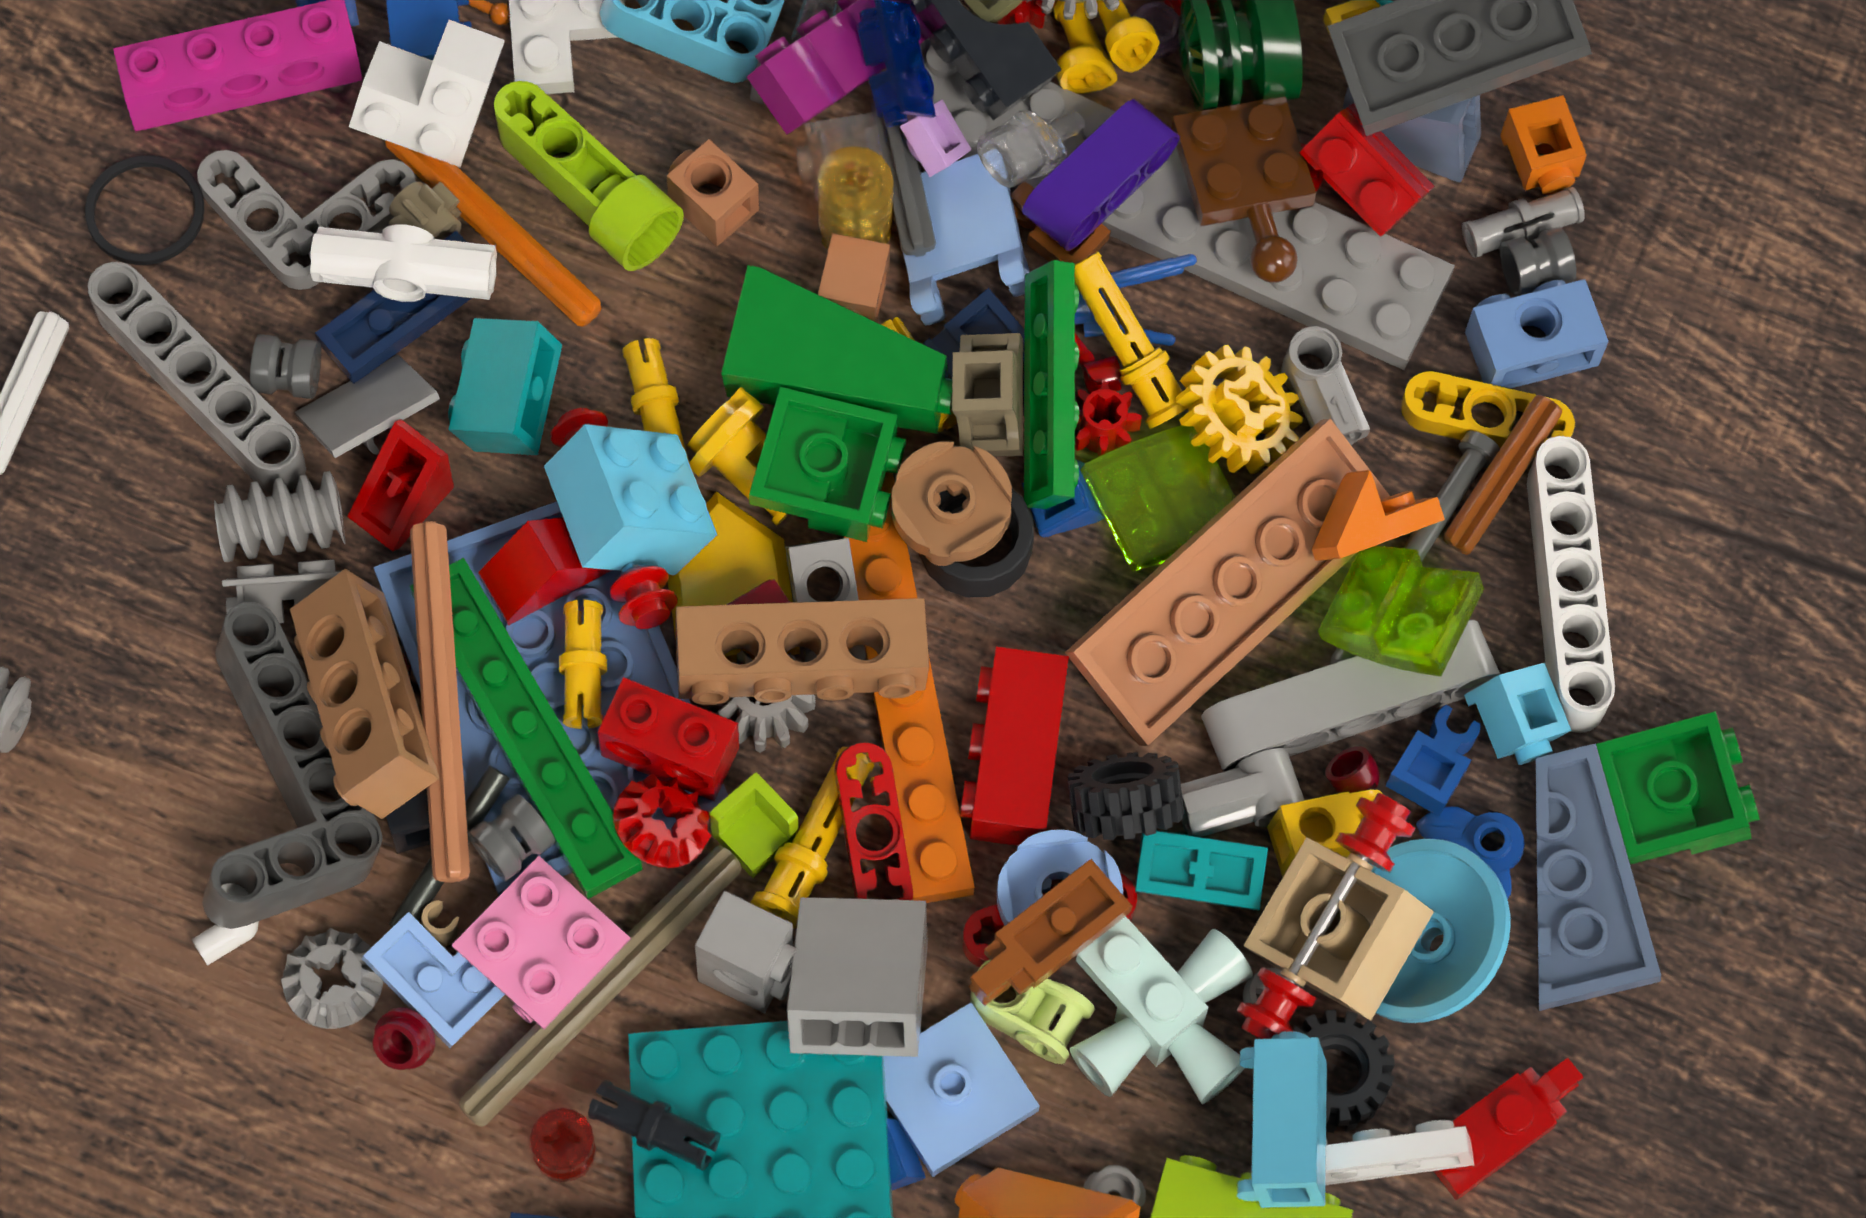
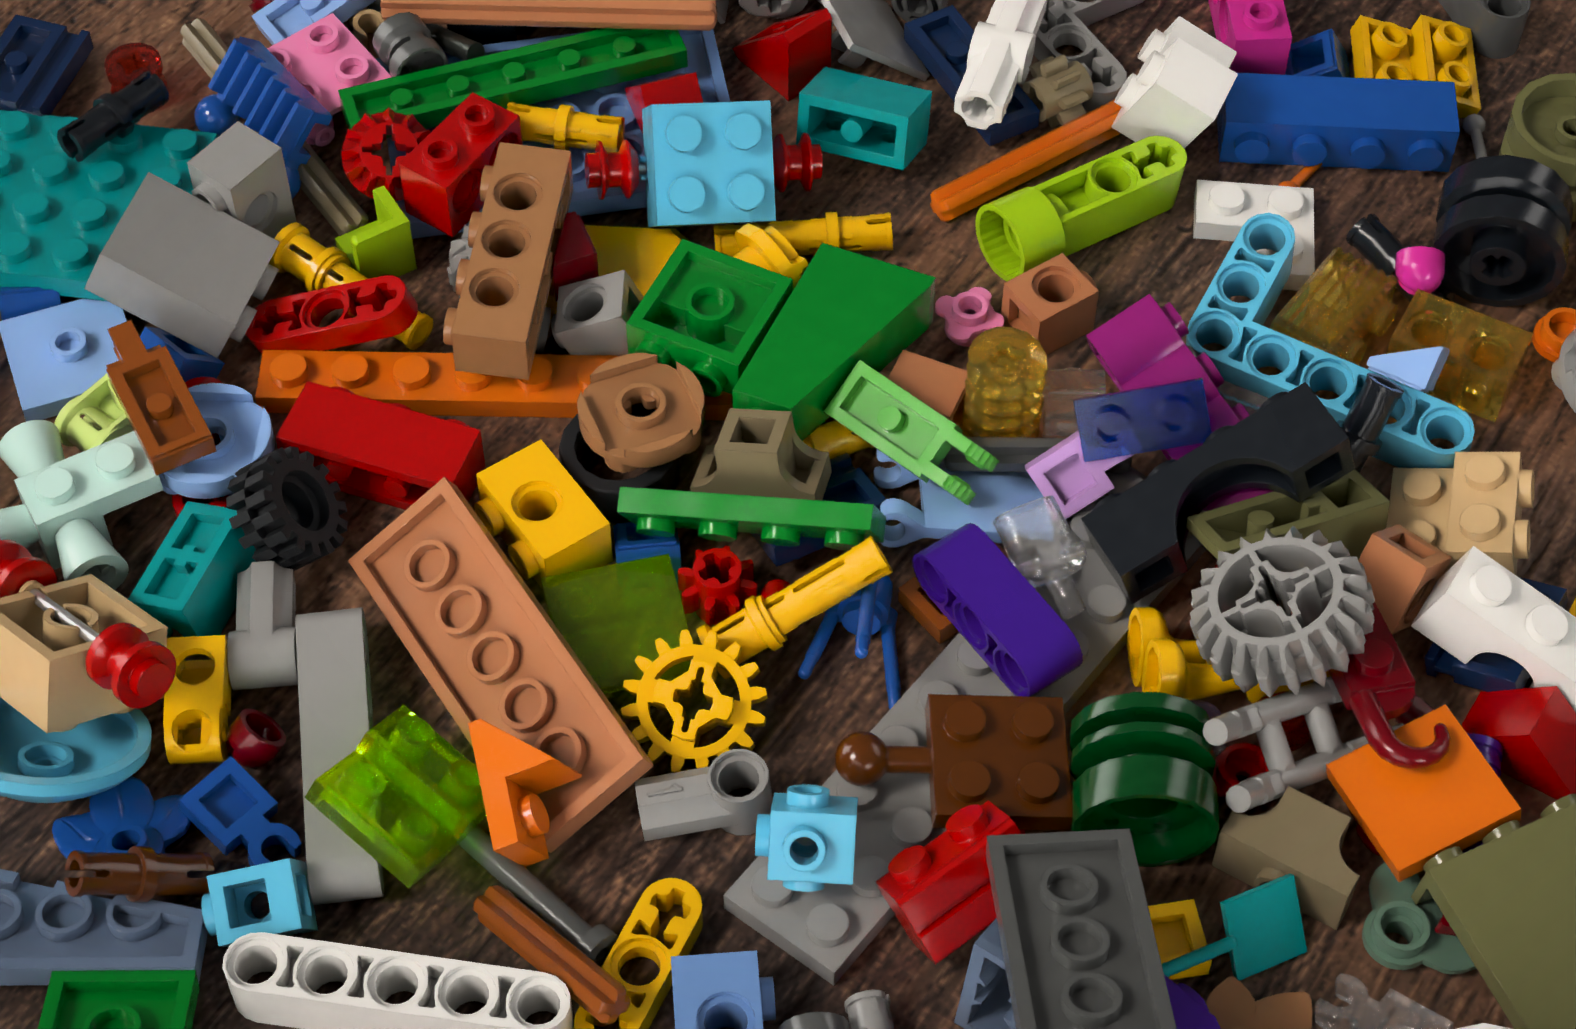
camera: 105 degrees right, 15 degrees down
(605, 964) = (268, 96): none -> blue gear
(727, 281) = (968, 315): none -> bright pink plate
(925, 269) = (905, 429): none -> bright green hinge
(949, 970) = (188, 359): none -> blue plate
(1073, 553) = (534, 488): none -> yellow brick
(1372, 275) = (830, 842): none -> medium azure brick
(1526, 811) = (138, 874): none -> reddish brown pin

